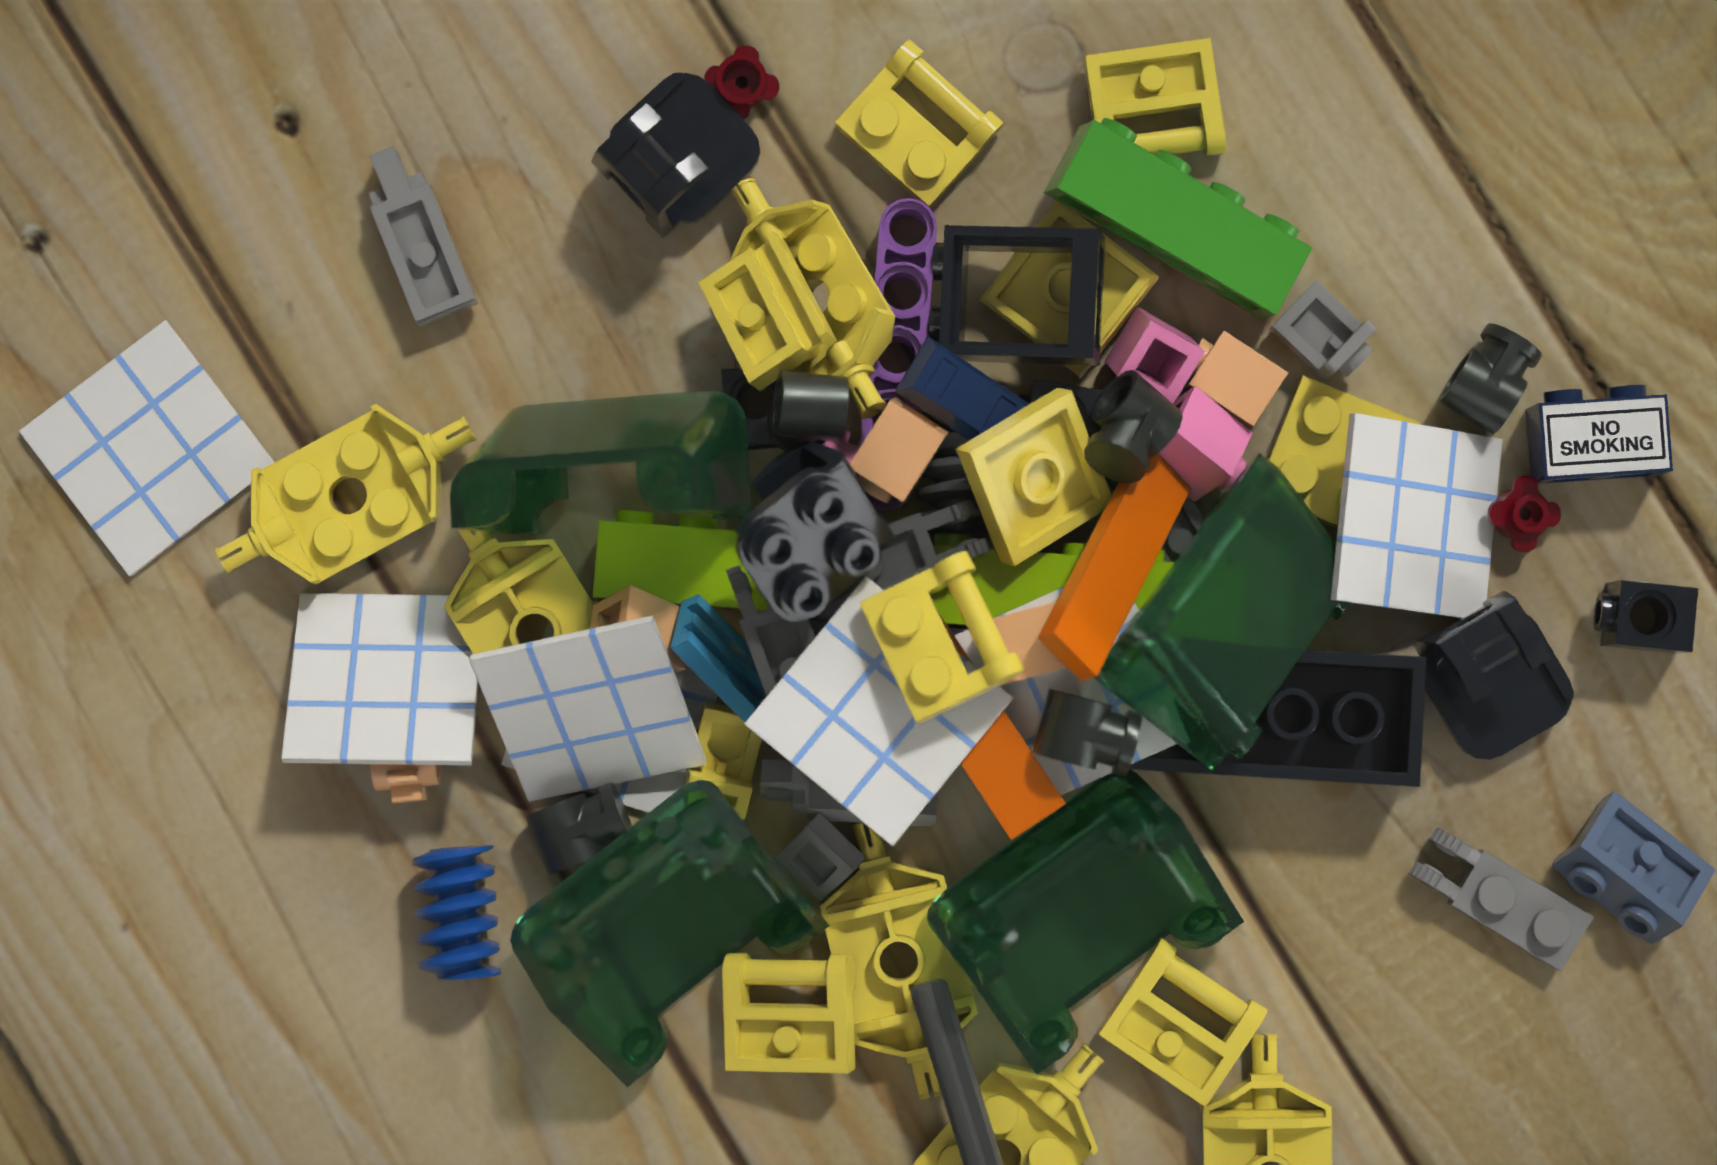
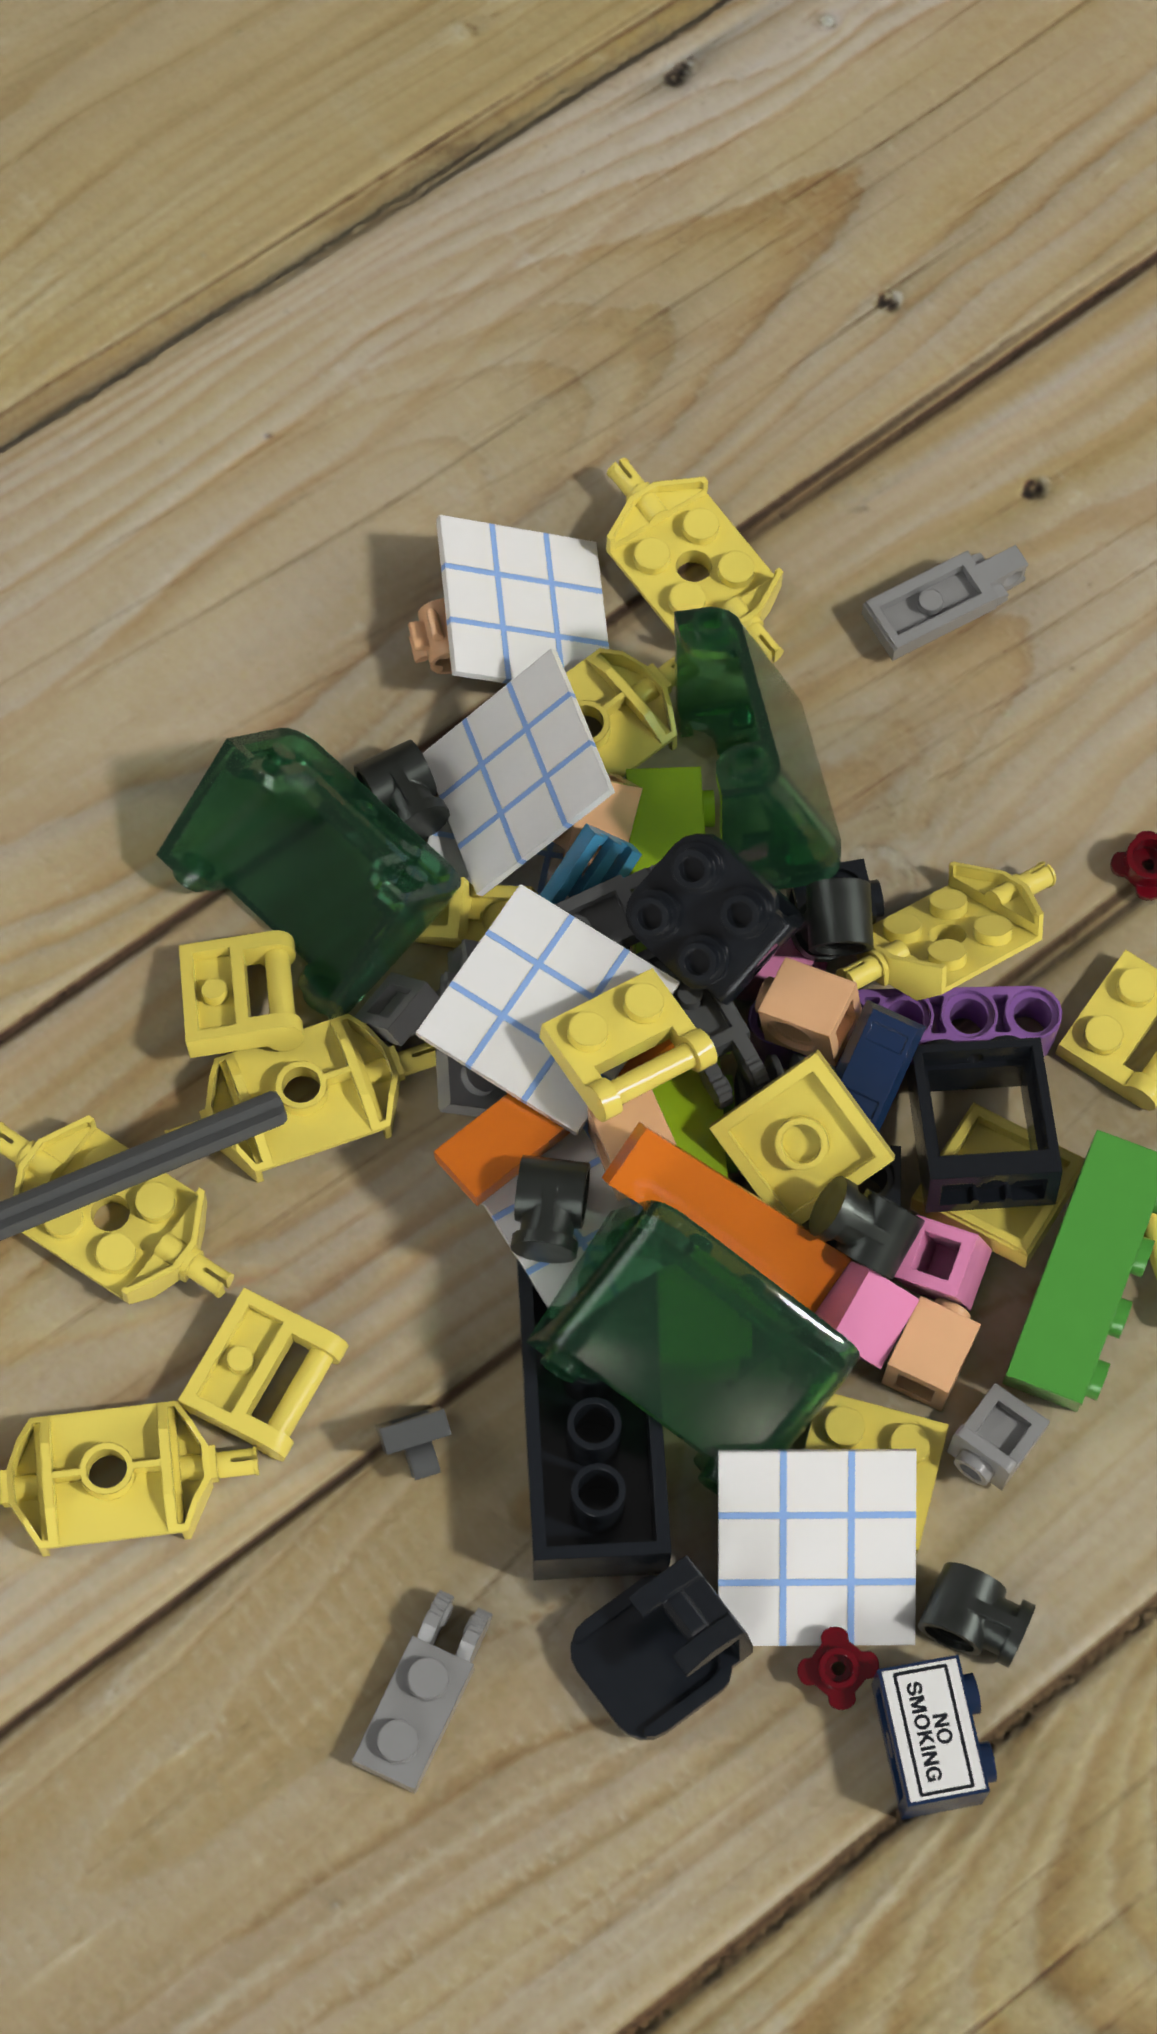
camera: 85 degrees right, 20 degrees down
(147, 448) = (713, 406): white piece -> none
(457, 913) = (311, 691): blue piece -> none
(678, 152) = (1067, 804): black piece -> none
(766, 311) = (929, 886): light yellow plate -> none
(1077, 907) = (361, 1246): clear green windscreen -> none
(1262, 883) = (415, 1436): none -> dark grey tile
(1635, 870) = (471, 1827): sand blue bracket -> none
(1673, 610) = (740, 1839): black brick -> none

